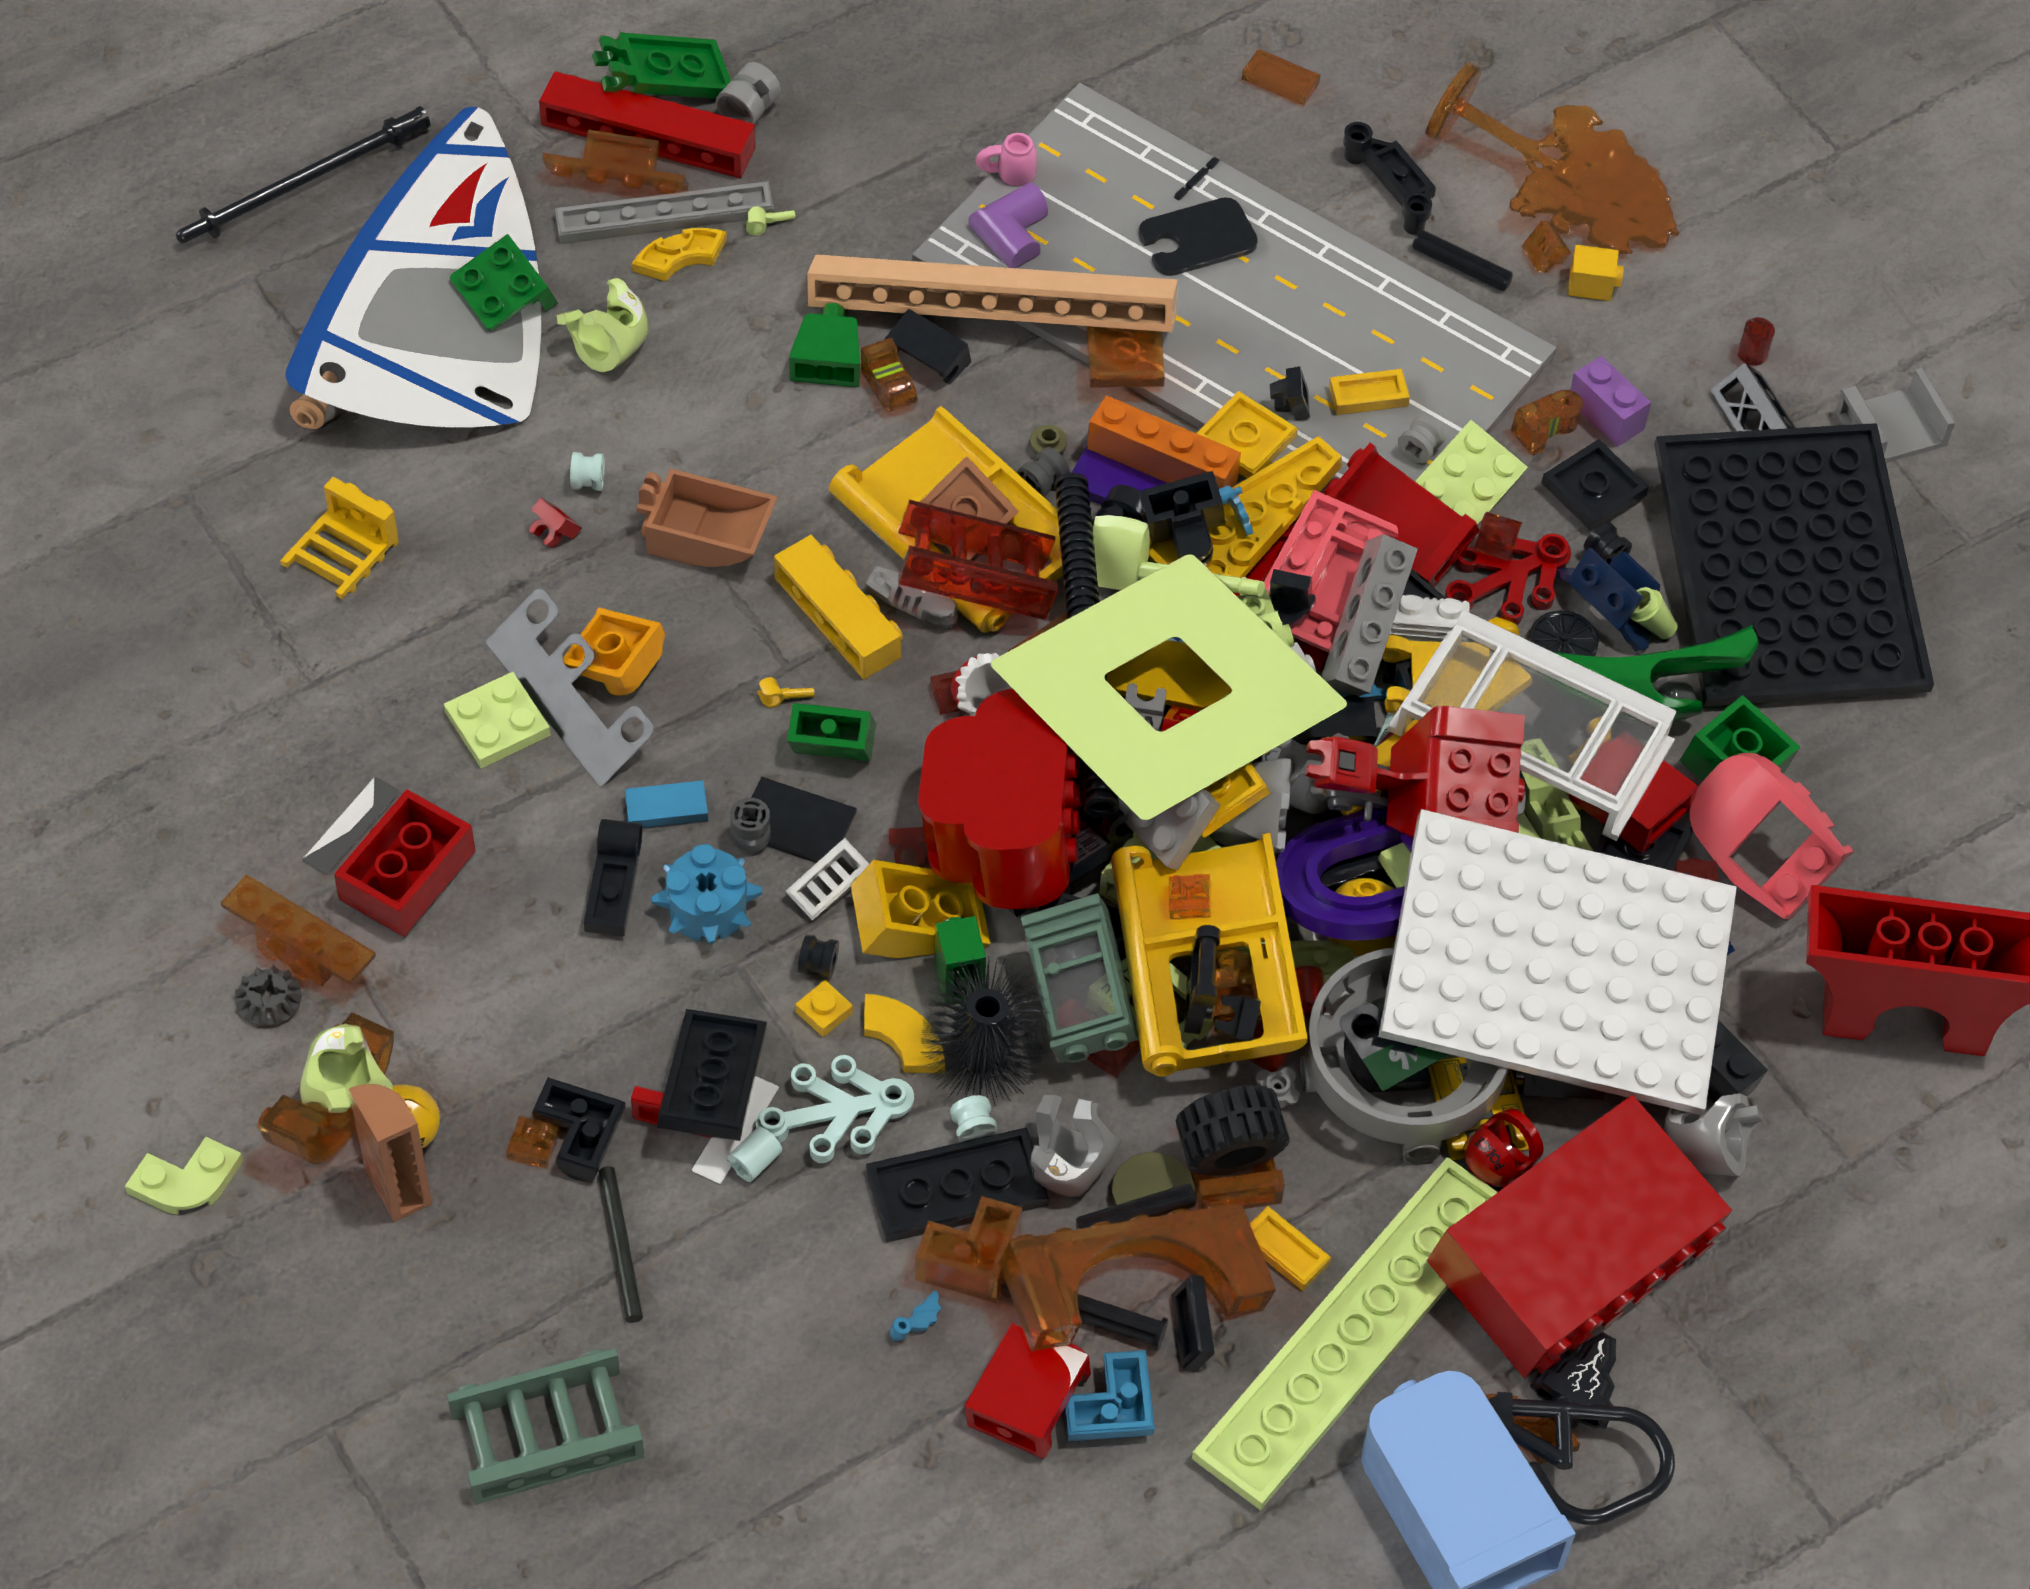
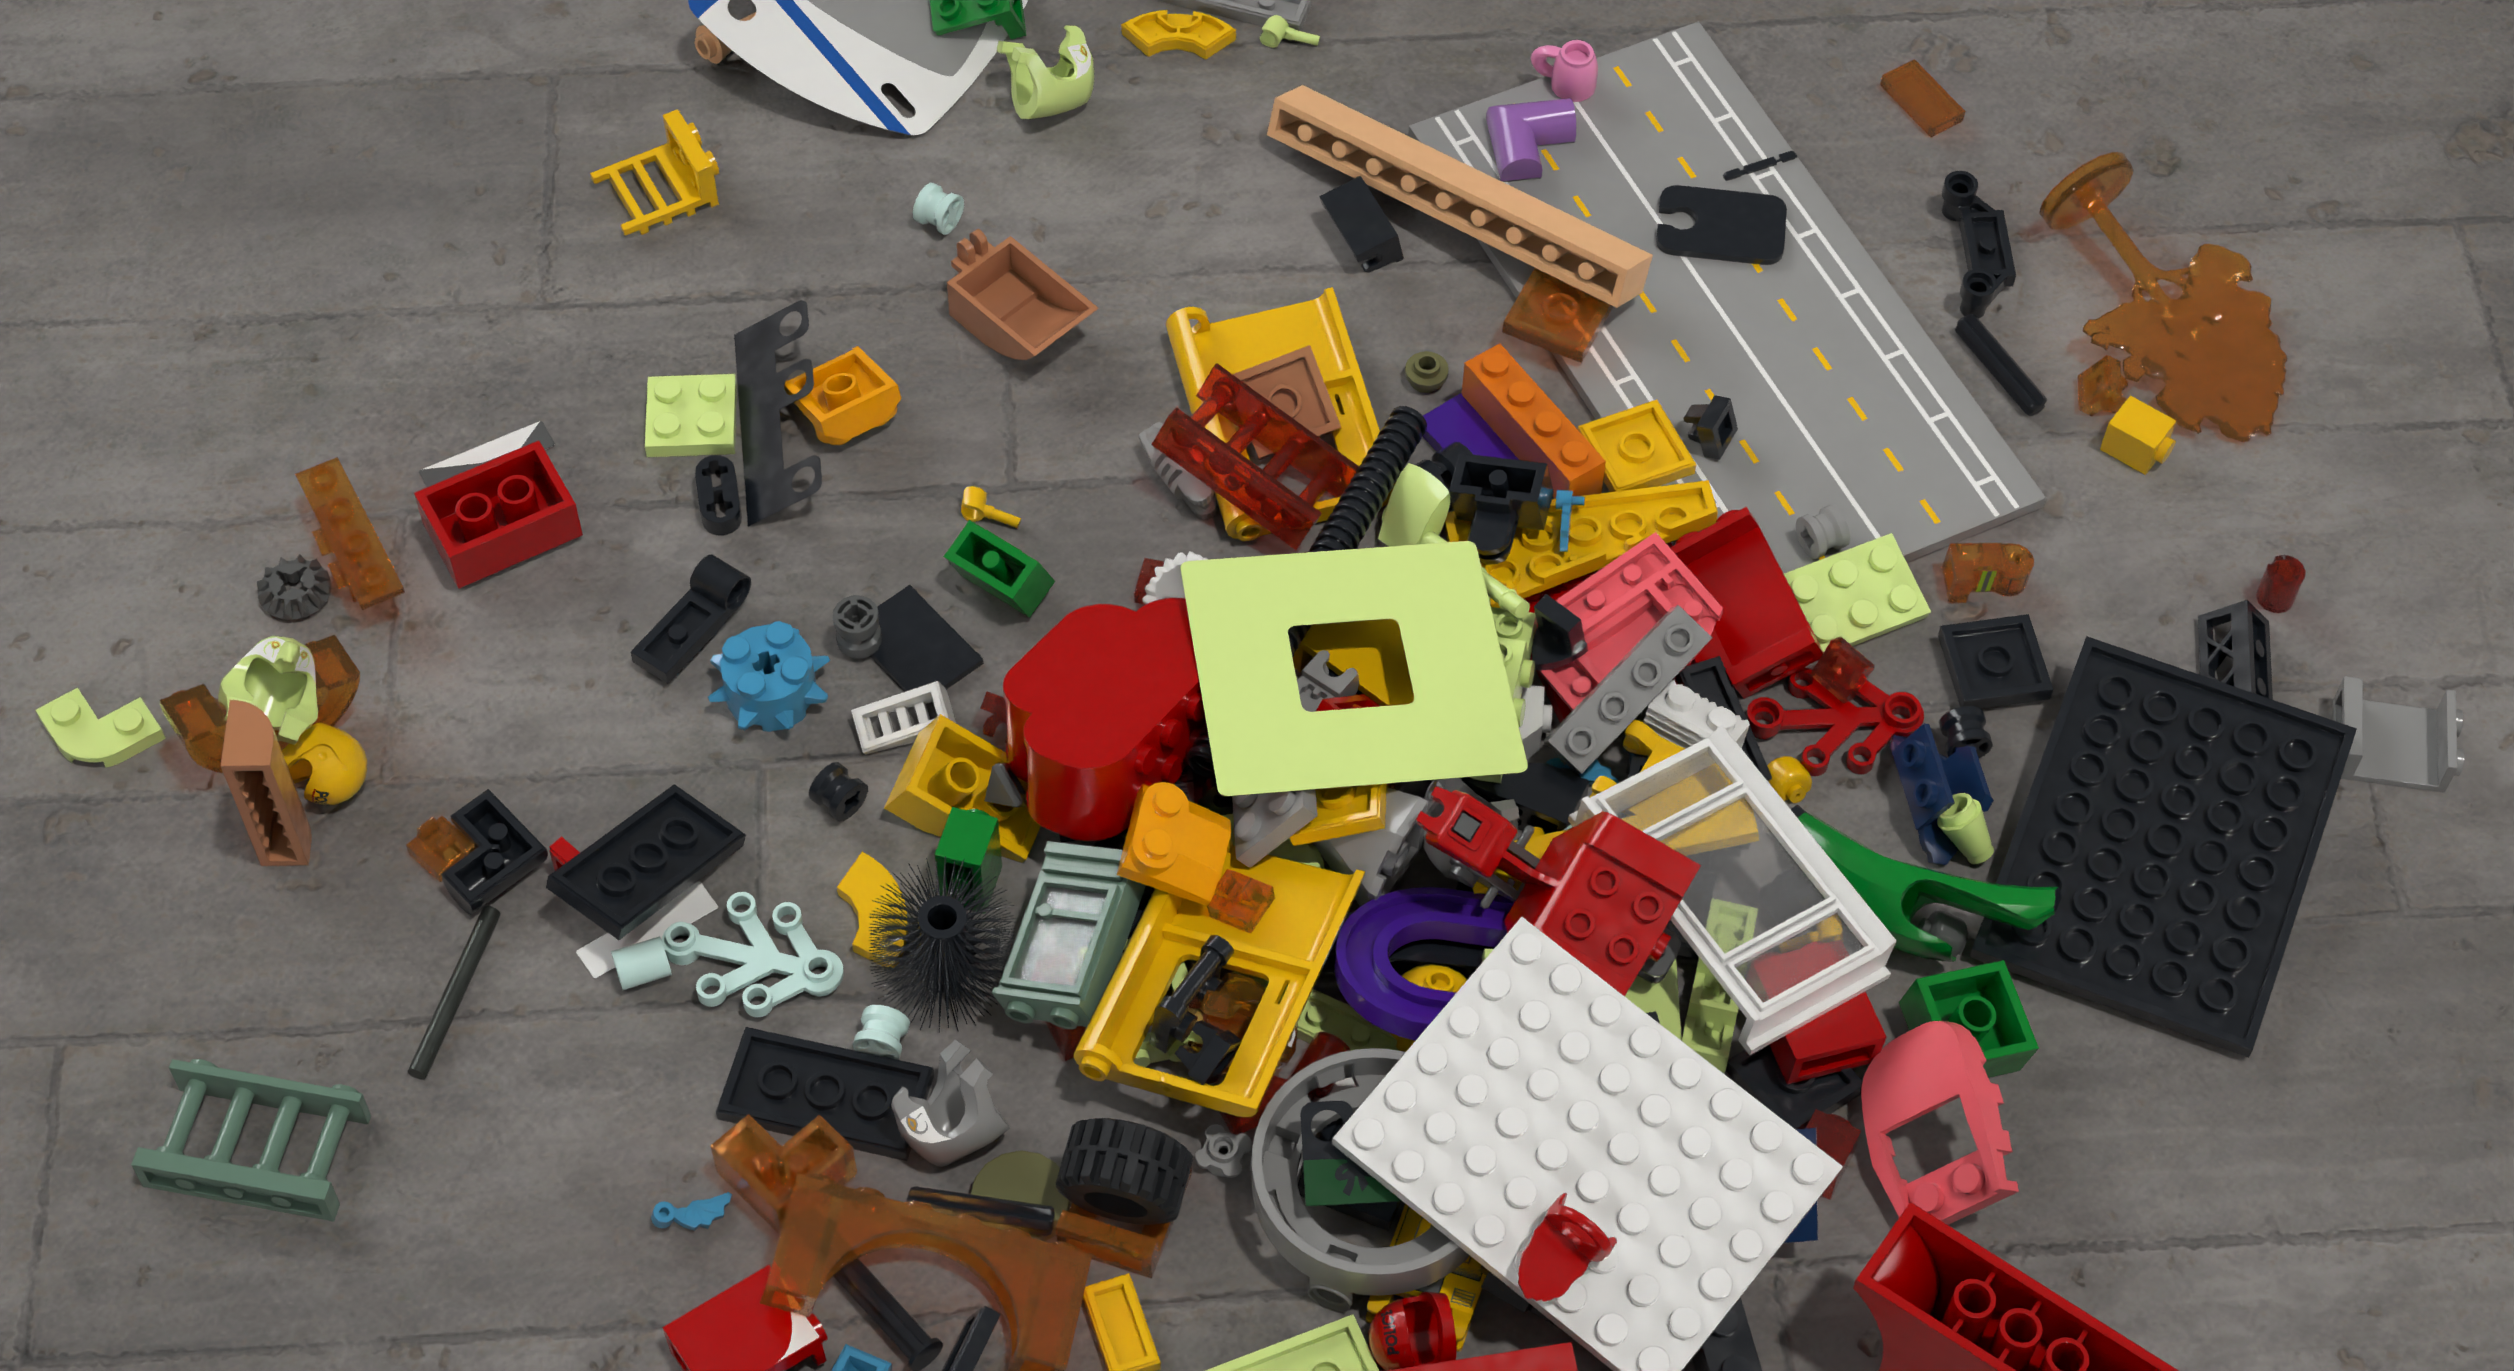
camera: 30 degrees right, 0 degrees up
(555, 521) = (873, 243): red tile -> none
(569, 768) = (710, 496): none -> black beam
(667, 804) = (797, 571): dark azure tile -> none
(824, 1008) = (813, 848): yellow plate -> none
(826, 349) = (1257, 184): green torso -> none
(838, 606) = (1096, 446): yellow brick -> none
(887, 375) = (1302, 235): clear orange leg -> none
(951, 895) = (1005, 787): none -> dark grey slope
(1044, 470) = (1389, 396): dark grey wheel -> none
(1124, 874) = (1174, 844): none -> light orange slope
(1369, 391) = (1801, 459): yellow tile -> none
(1565, 633) = (1856, 810): black wheel -> none
(1590, 1032) = (1560, 1252): none -> red piece
(1610, 401) = (2067, 579): medium lavender brick -> none

